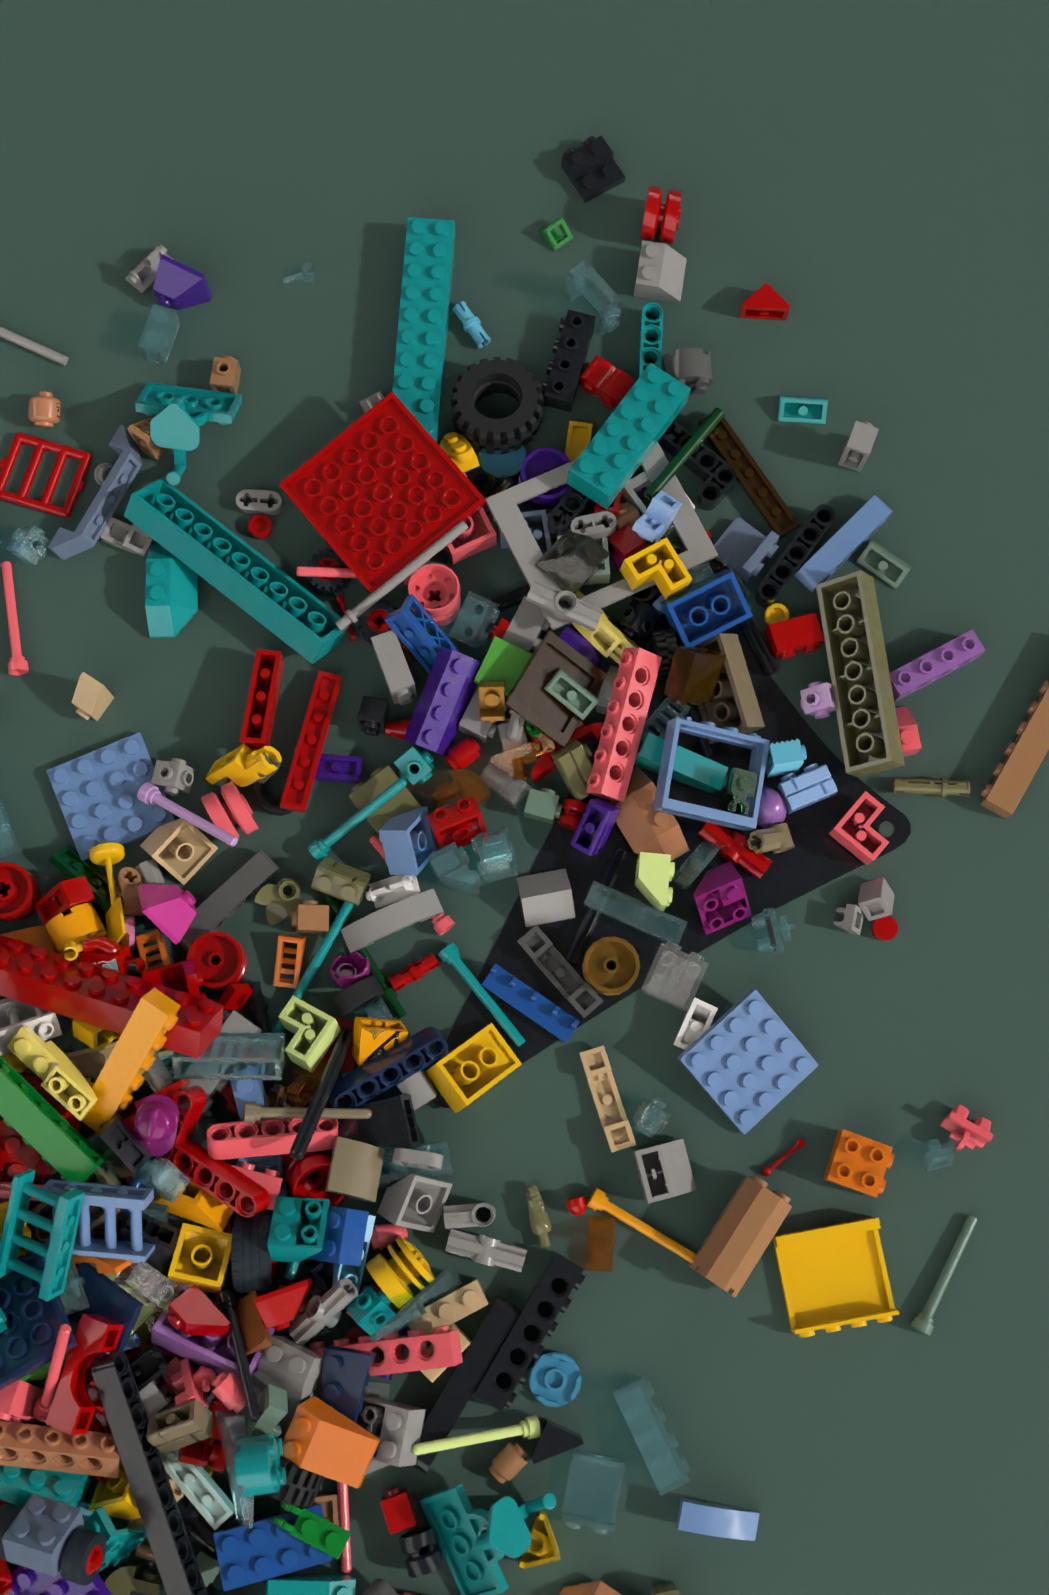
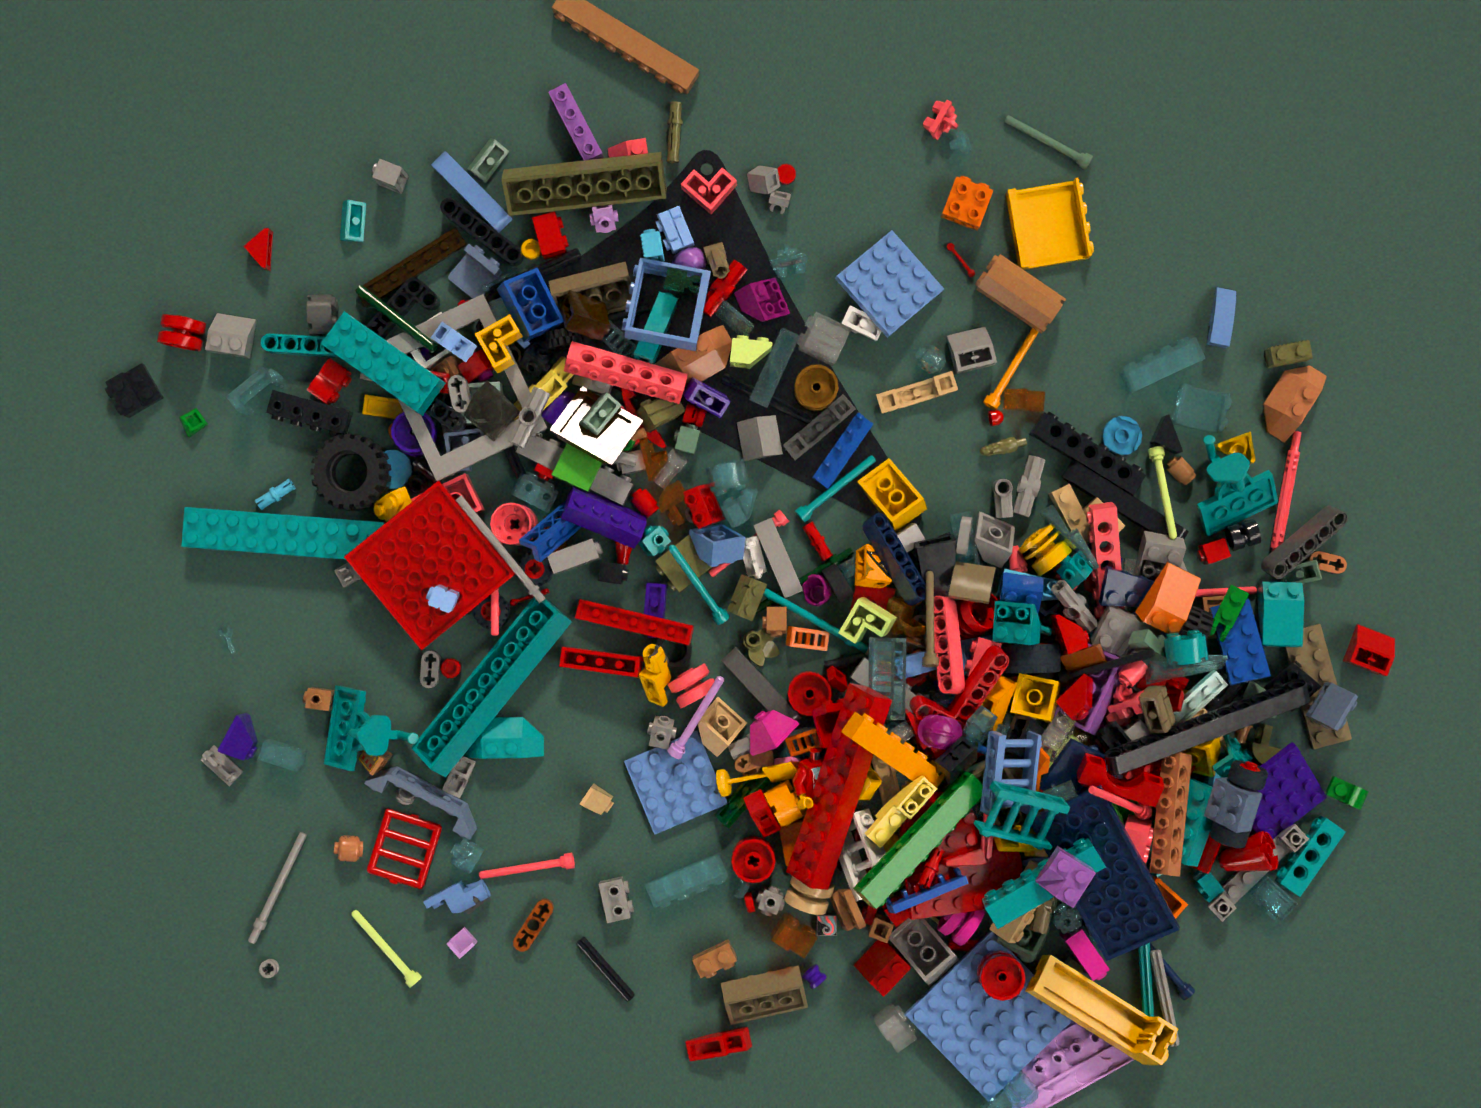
camera: 85 degrees left, 10 degrees up
(321, 1095) = (915, 607): black axle -> none
(339, 502) = (442, 597): none -> light blue brick
(491, 701) = (606, 477): pearl gold bracket -> none

